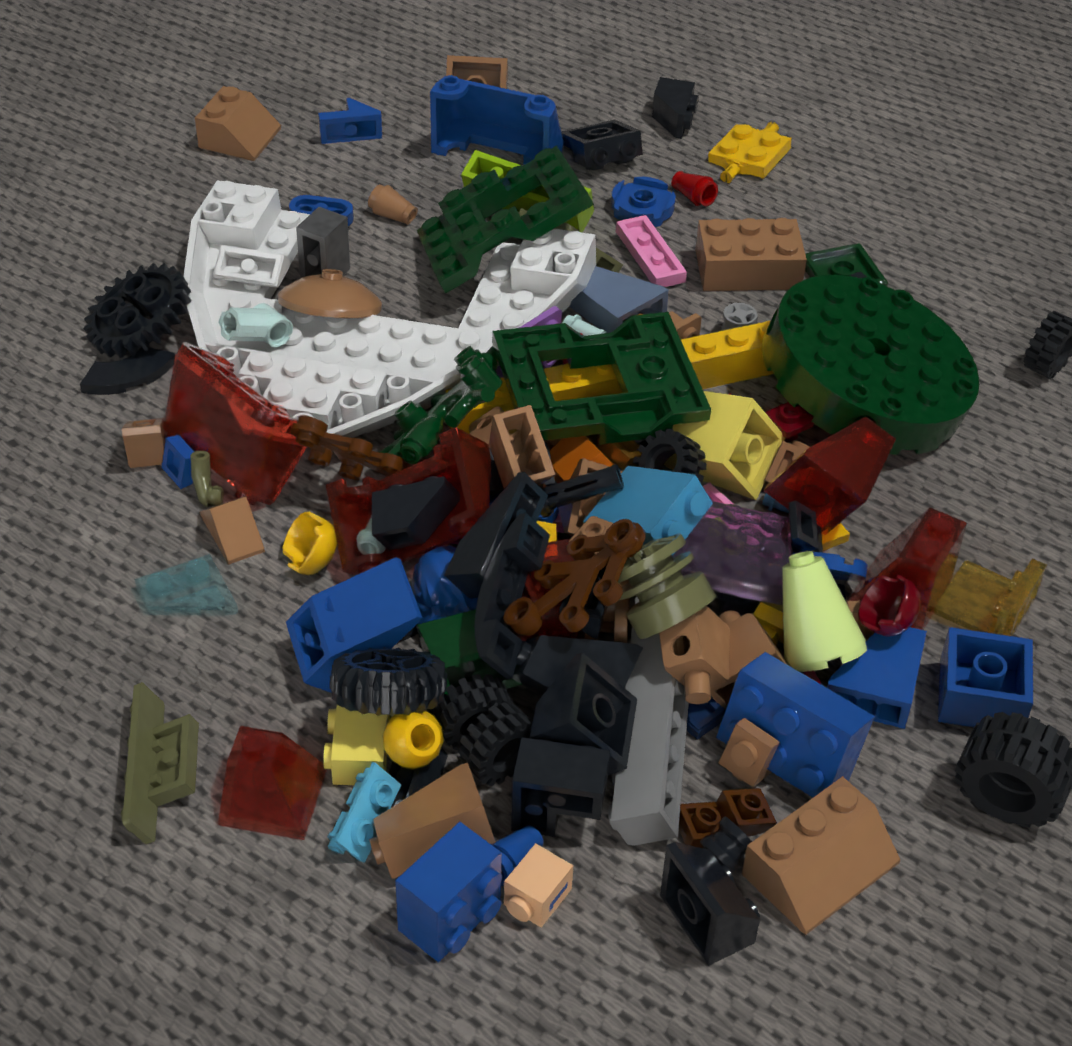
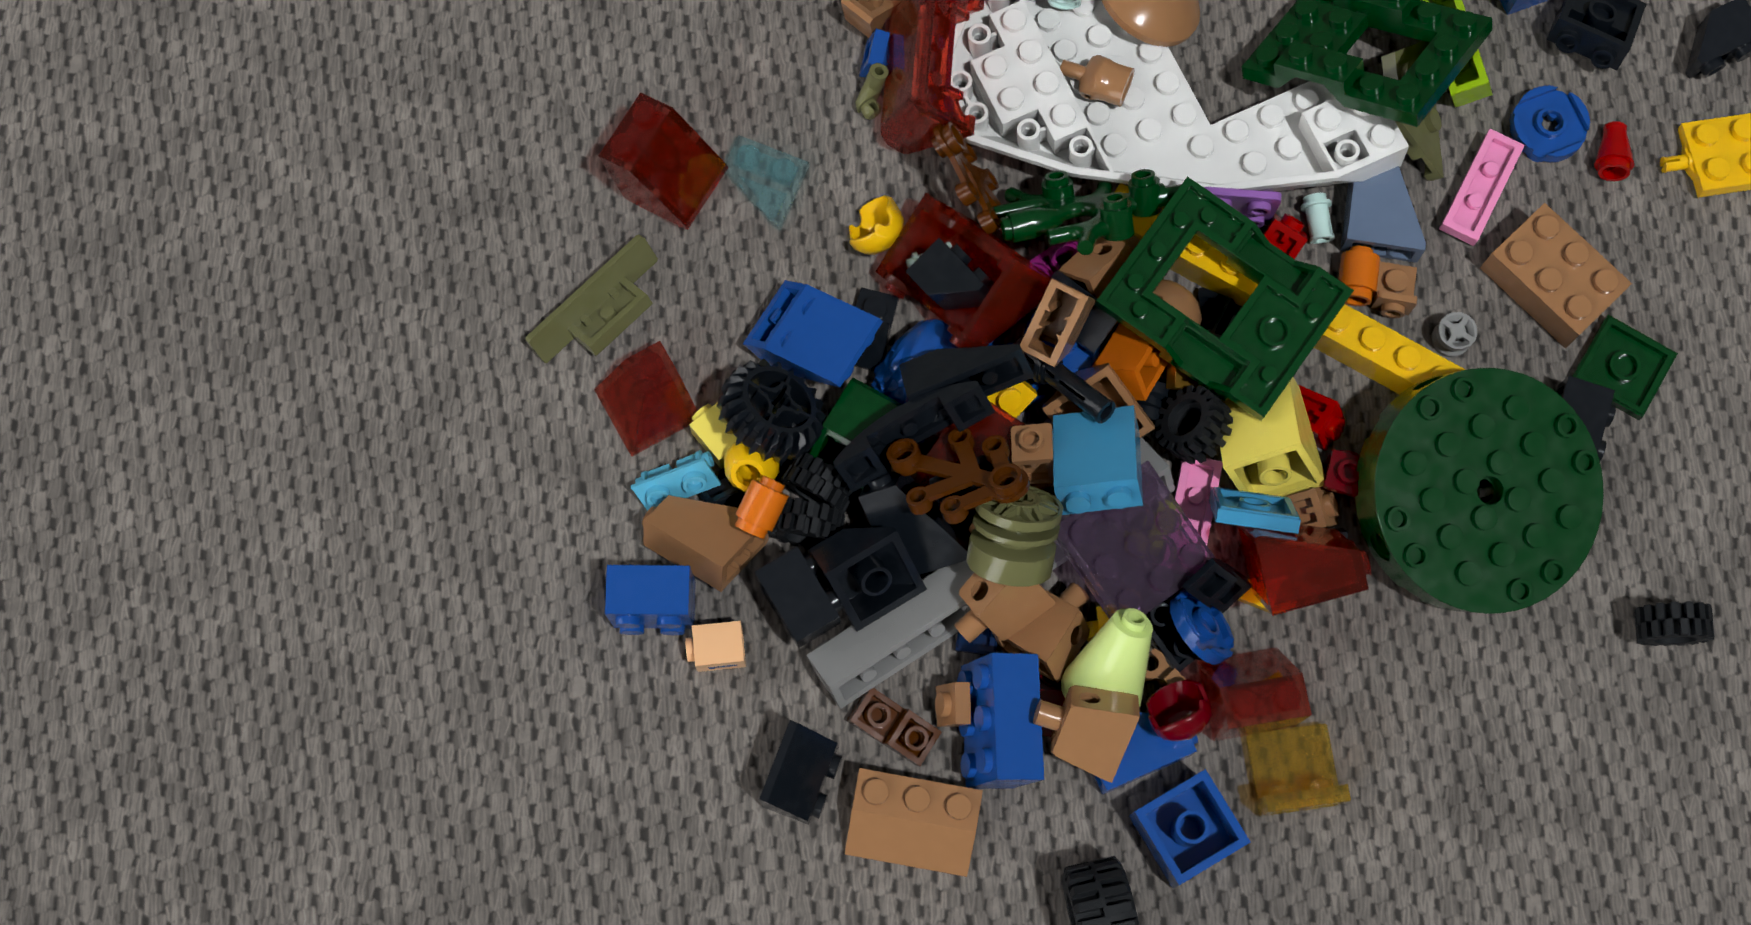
camera: 50 degrees right, 30 degrees up
(100, 623) = (662, 162): none -> clear red slope
(233, 529) = (849, 152): medium nougat slope -> none
(361, 349) = (1100, 79): none -> medium nougat piece
(460, 744) = (761, 506): none -> orange brick
(515, 847) = (732, 606): blue cone -> none
(727, 843) = (862, 749): black wheel -> none
(768, 470) = (1254, 510): none -> dark azure tile
(860, 654) = (1091, 728): none -> medium nougat torso

